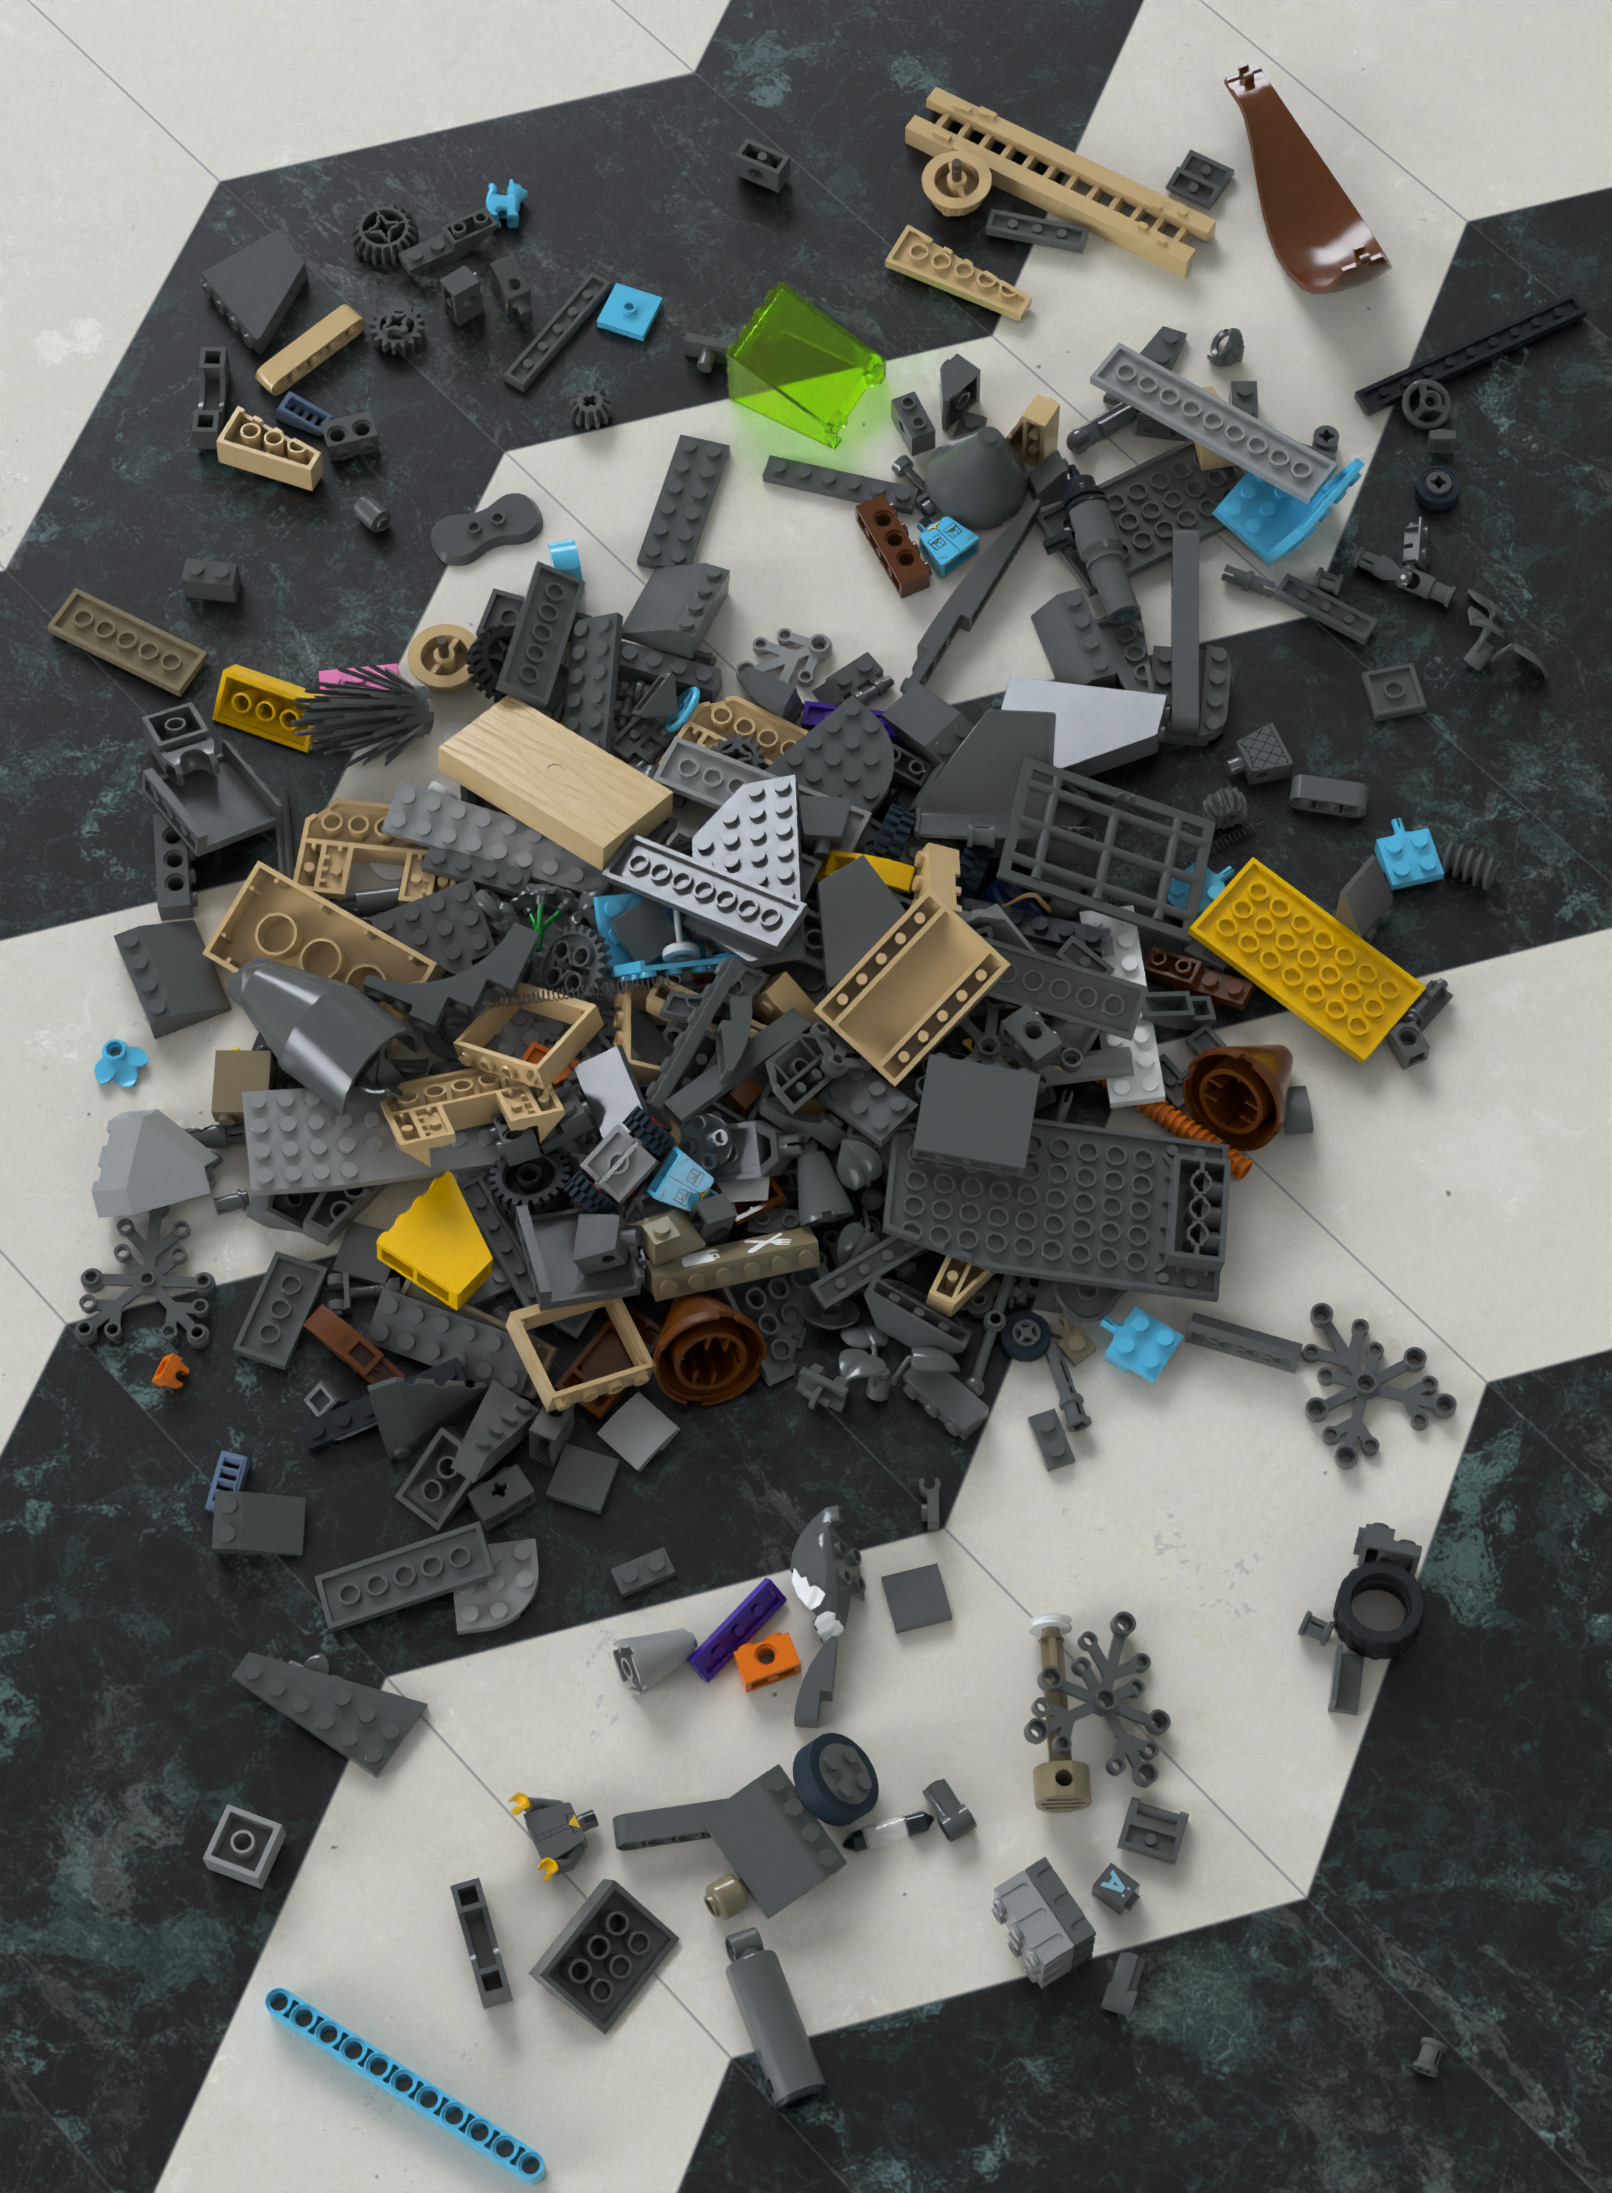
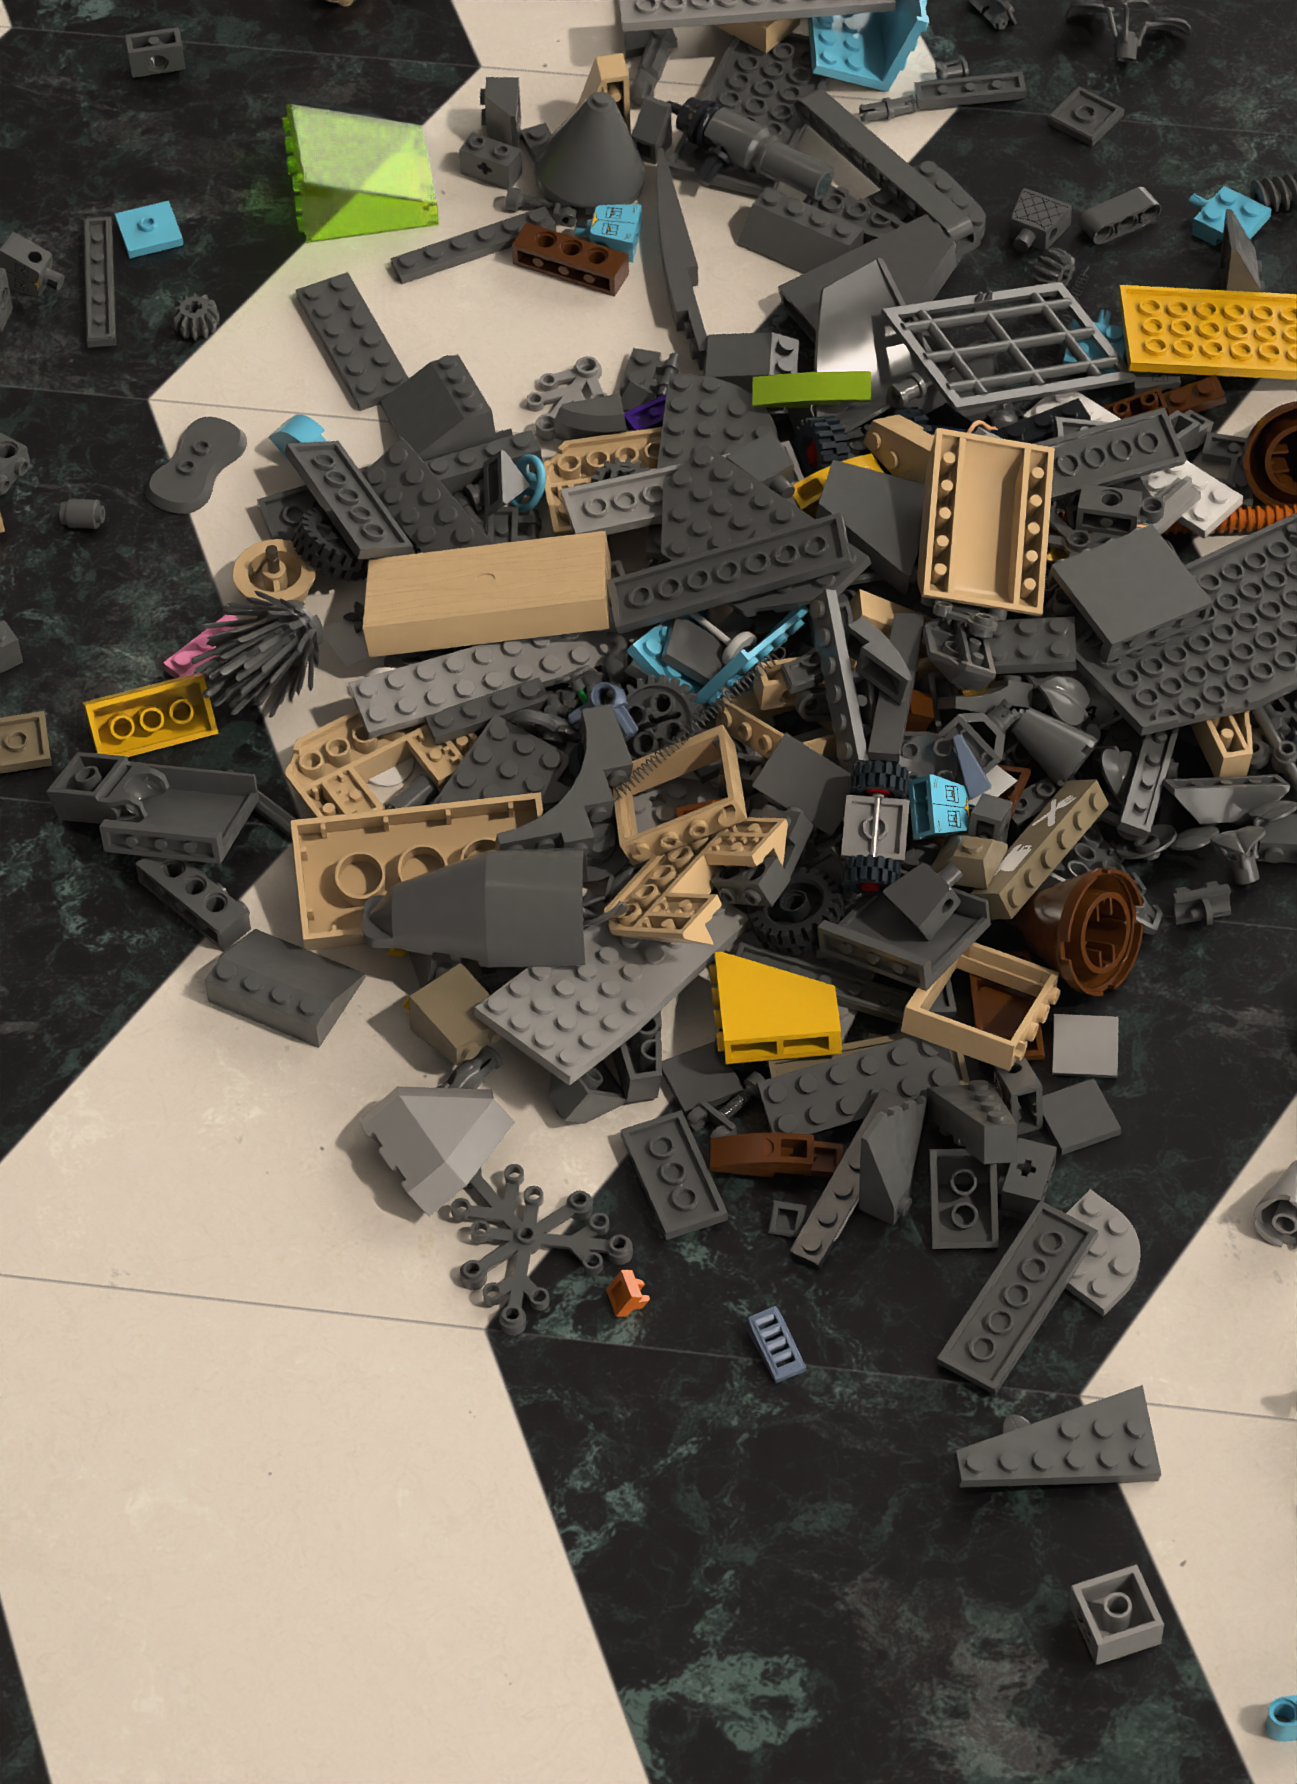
camera: 40 degrees left, 10 degrees down
(121, 1067) = (313, 1089): medium azure plate -> none
(232, 1202) = (535, 1122): dark grey pin -> none
(258, 1523) = (840, 1354): dark grey slope -> none
(551, 928) = (619, 704): none -> sand blue axle
(643, 1572) = (1206, 1150): dark grey plate -> none
(706, 349) = (254, 213): dark grey tile -> none
(729, 1171) = (973, 775): none -> sand blue slope
(927, 783) = (811, 388): none -> lime slope
(938, 266) = (372, 44): tan wing -> none
(1149, 427) = (697, 44): dark grey hinge -> none
(1388, 569) = (989, 33): dark grey piece -> none

